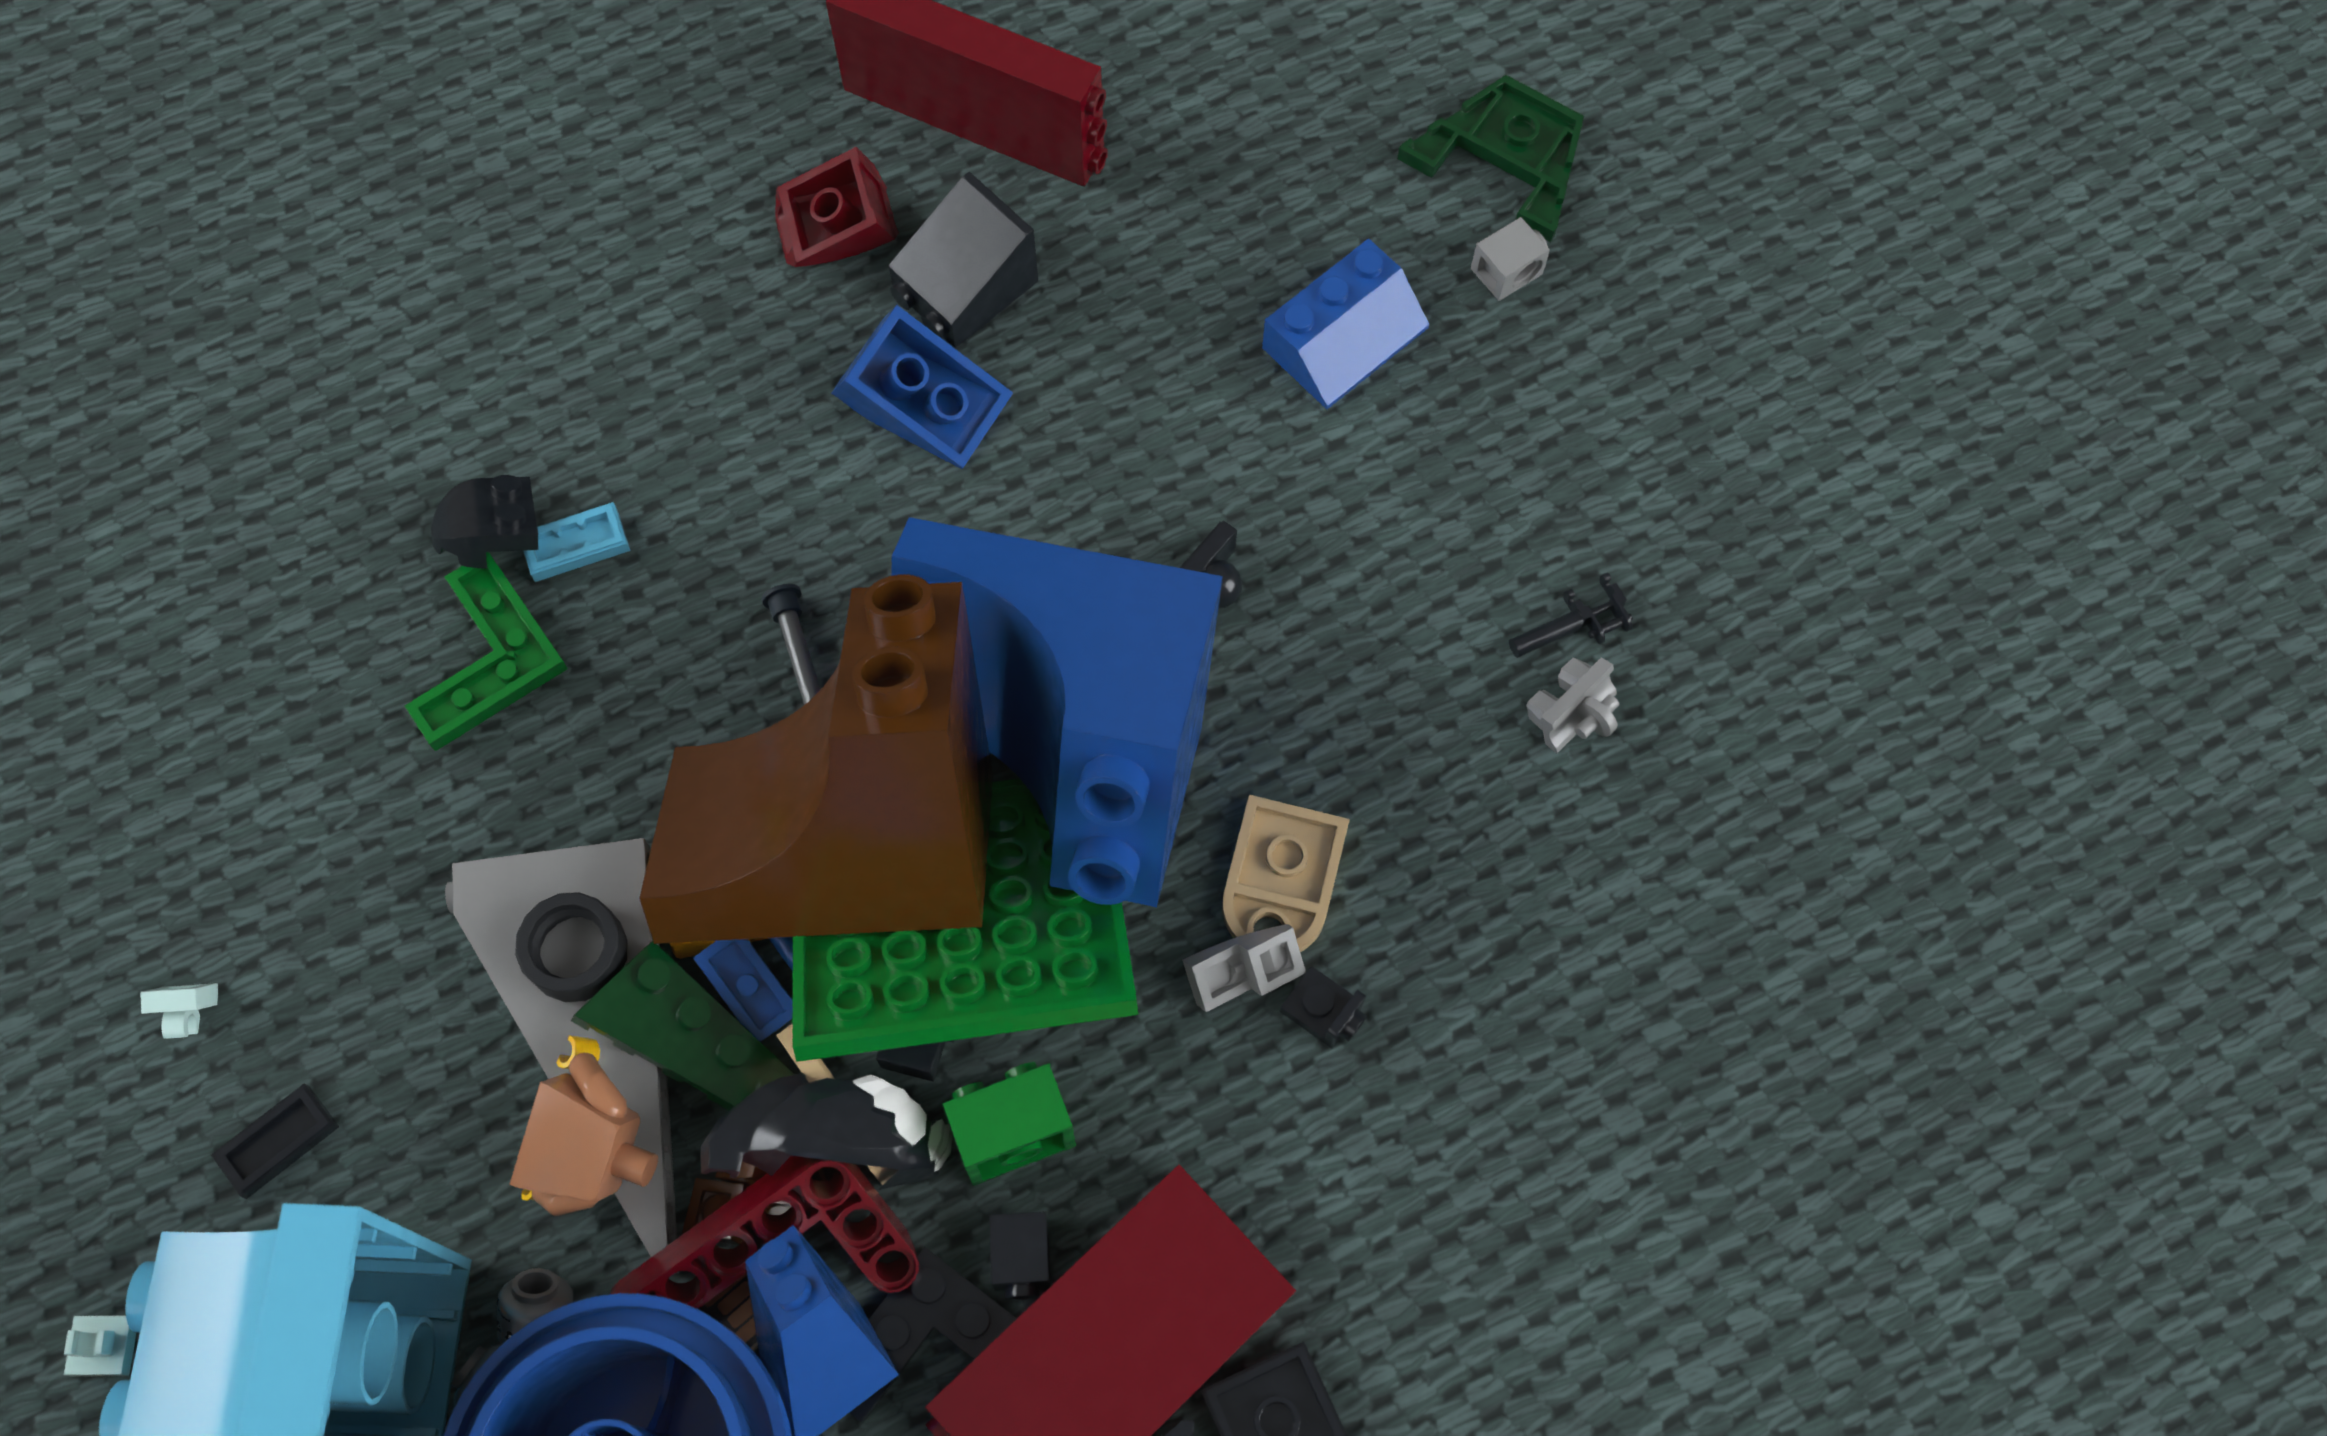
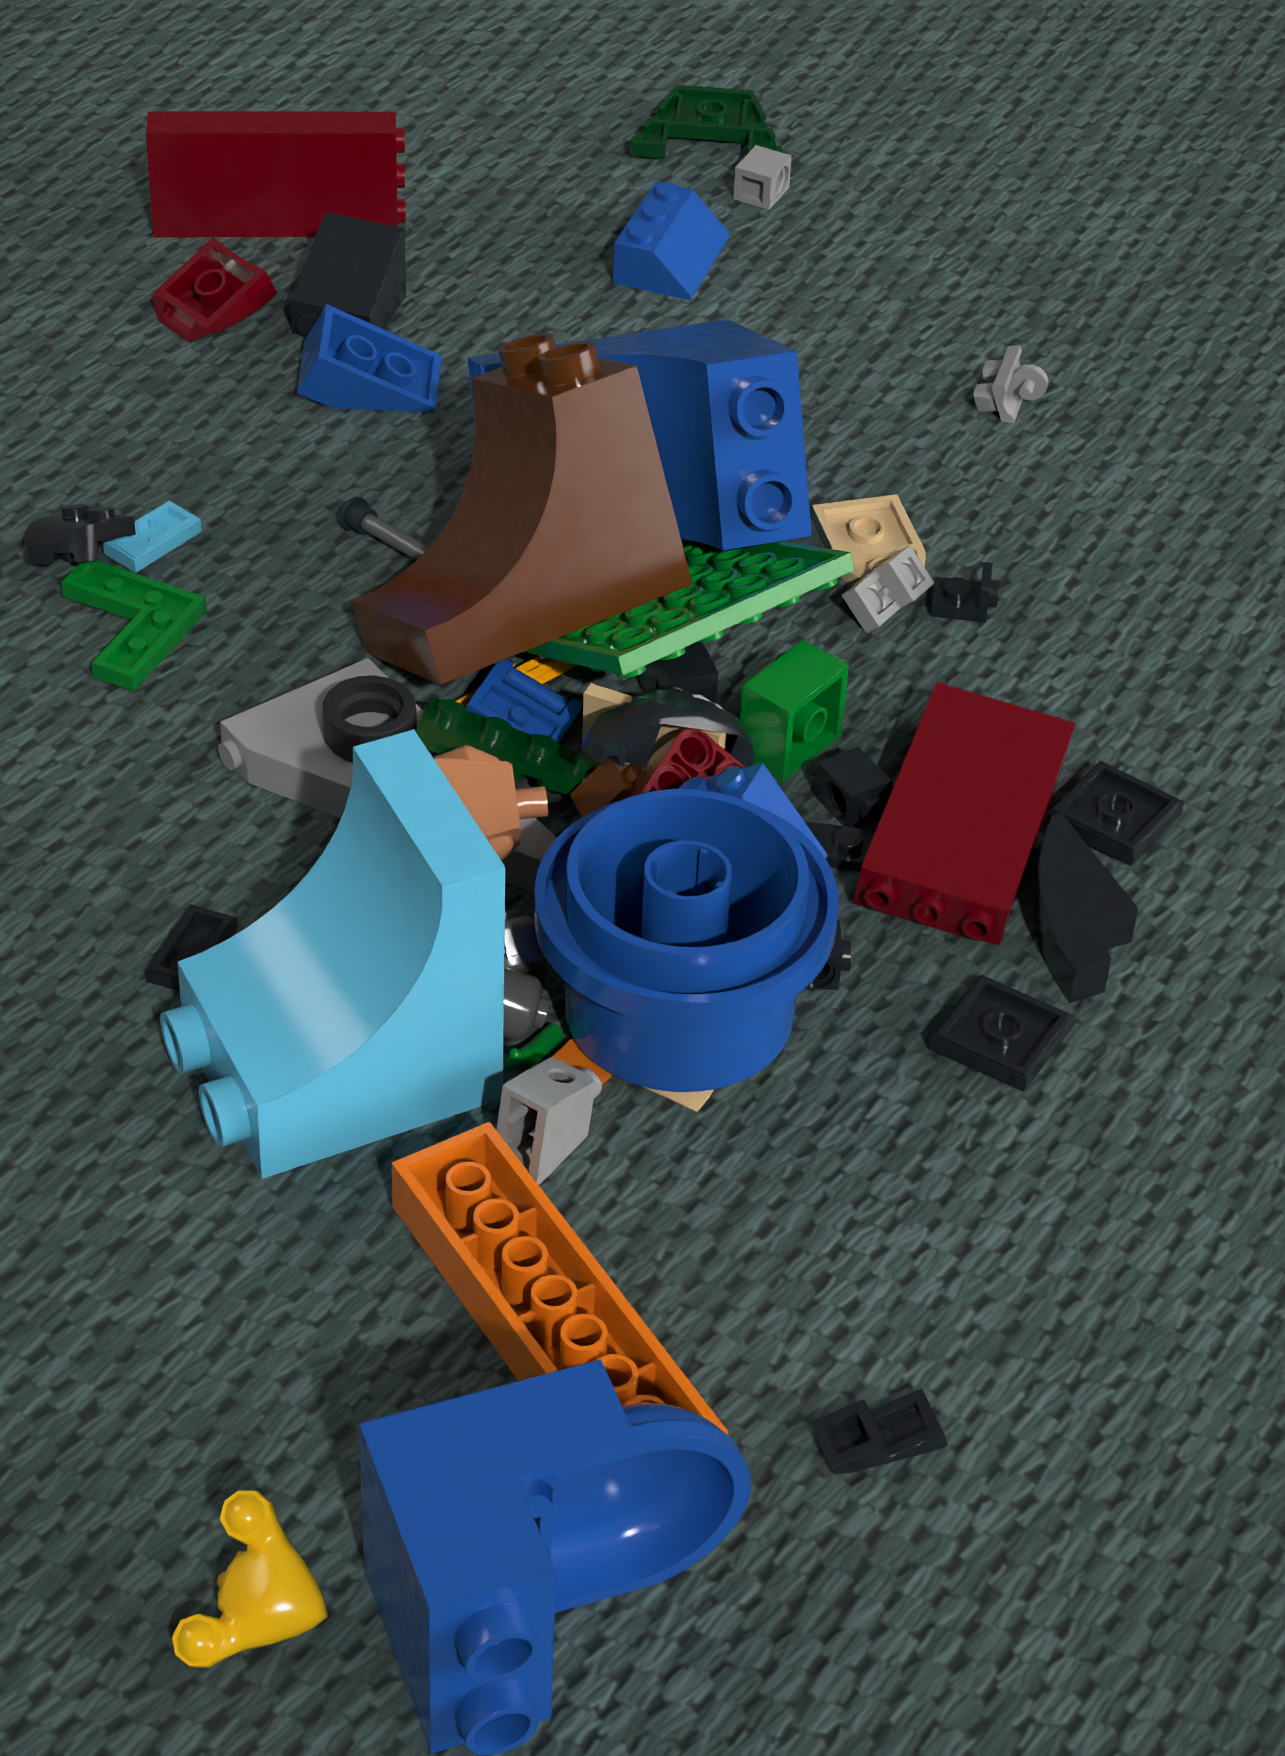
camera: 30 degrees left, 25 degrees down
(99, 1346) = (143, 1114): light aqua tile -> none
(179, 1006) = (43, 890): light aqua tile -> none
(1576, 619) = (970, 345): black piece -> none

